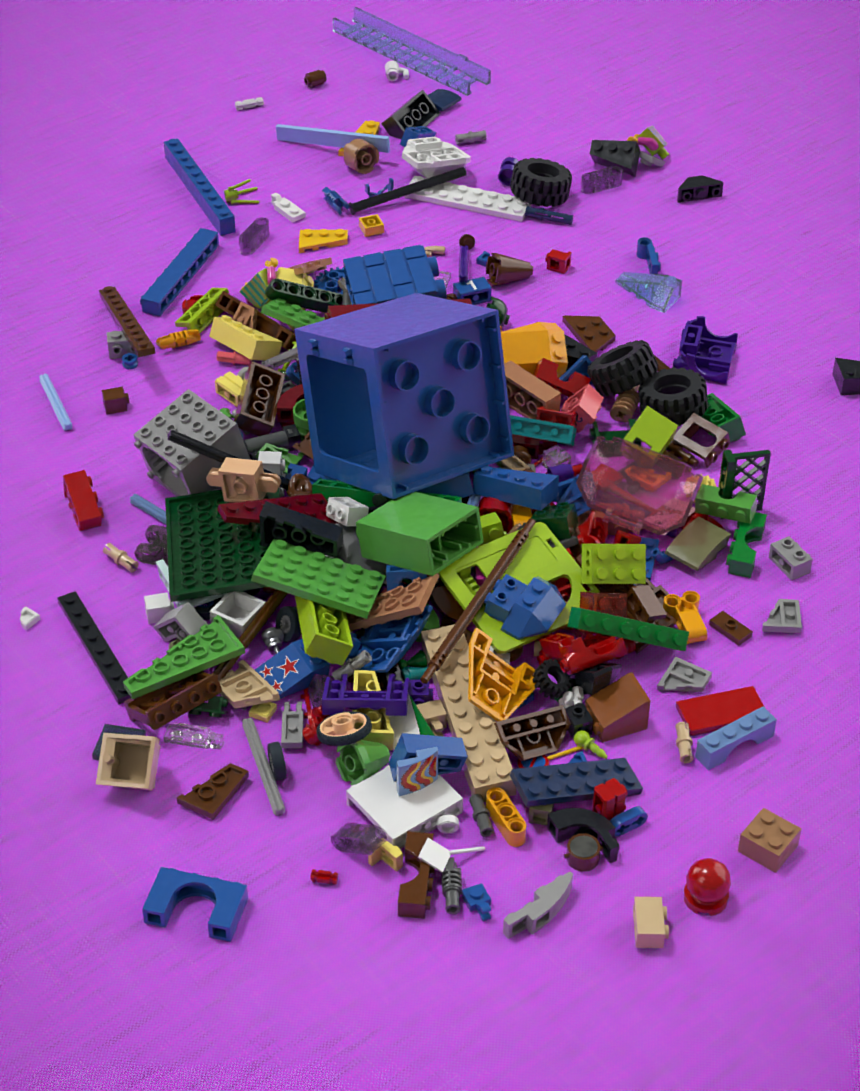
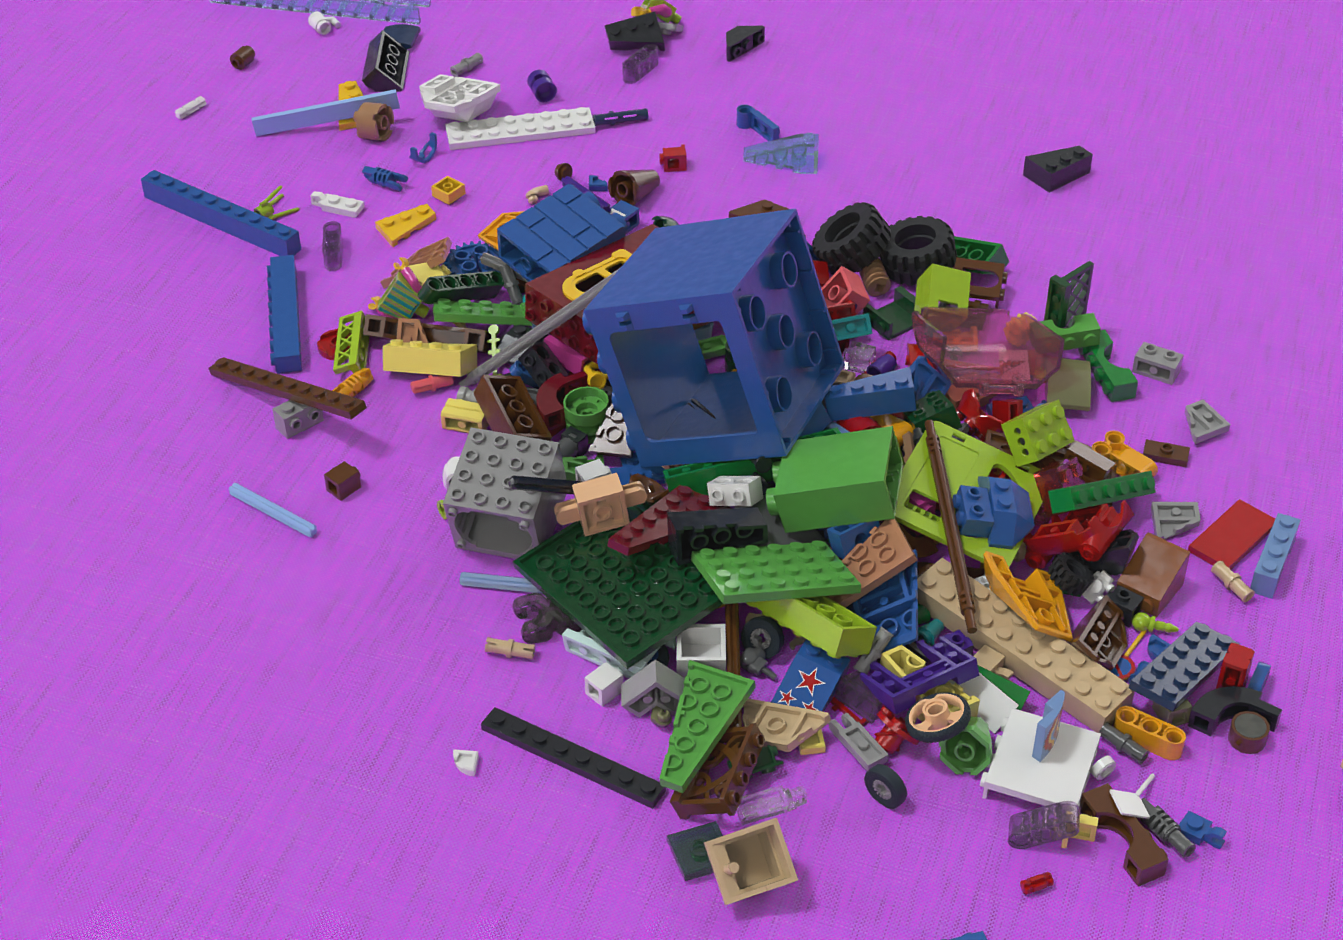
camera: 30 degrees left, 0 degrees up
(82, 500) = (414, 604): red wedge -> none
(129, 361) = (316, 431): blue bush -> none
(216, 792) = (847, 851): reddish brown wing -> none
(263, 766) = (868, 799): light grey axle -> none
(406, 190) = (454, 141): black axle -> none
(416, 132) = (411, 82): blue slope -> none
(450, 751) = (1028, 705): blue wedge -> none
(541, 182) = (590, 84): black tyre -> none
(546, 905) = (1264, 803): light grey slope -> none
(705, 351) = (897, 195): dark purple piece -> none

